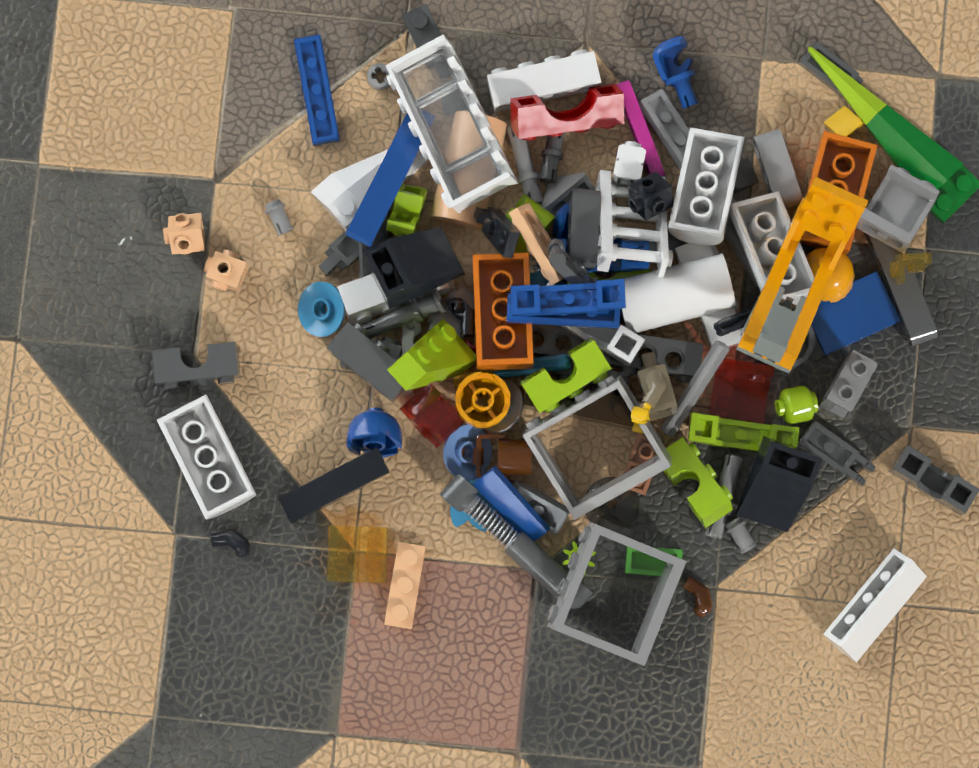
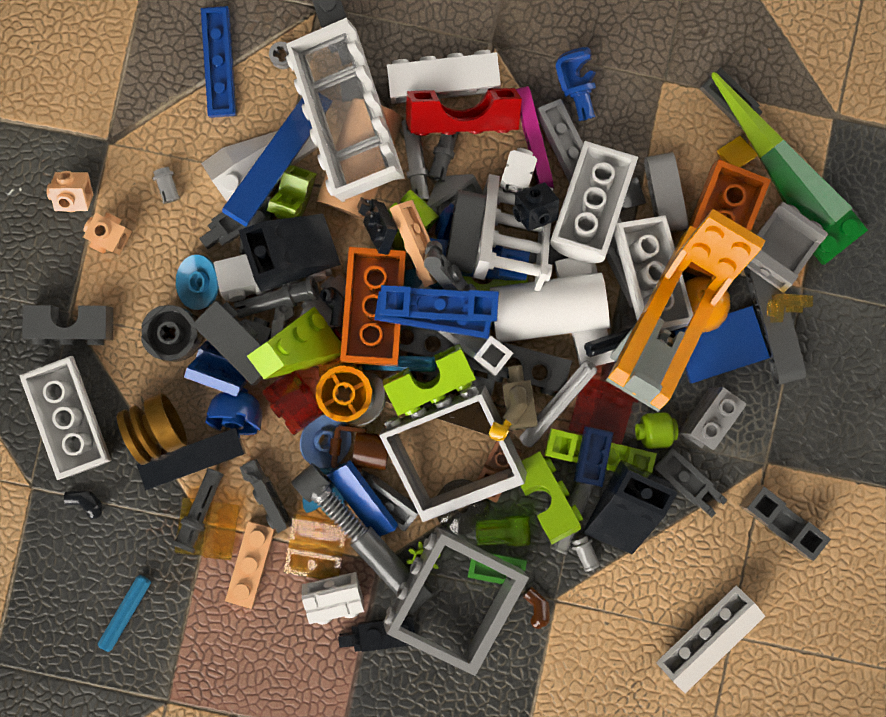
camera: 10 degrees right, 5 degrees up
(283, 648) = (124, 613): none -> dark azure axle
(294, 457) = (148, 430): none -> pearl gold wheel
(302, 346) = (156, 333): none -> dark grey brick
(345, 547) = (193, 523): none -> dark grey pin
(352, 392) = (215, 371): none -> blue slope
(413, 513) = (266, 495): none -> dark grey hinge
(469, 562) = (314, 548): none -> clear yellow slope
(493, 608) = (332, 598): none -> white brick
(541, 642) = (373, 636): none -> black hinge
(662, 522) = (508, 531): none -> clear neon green piece
(736, 436) = (593, 456): none -> dark blue plate

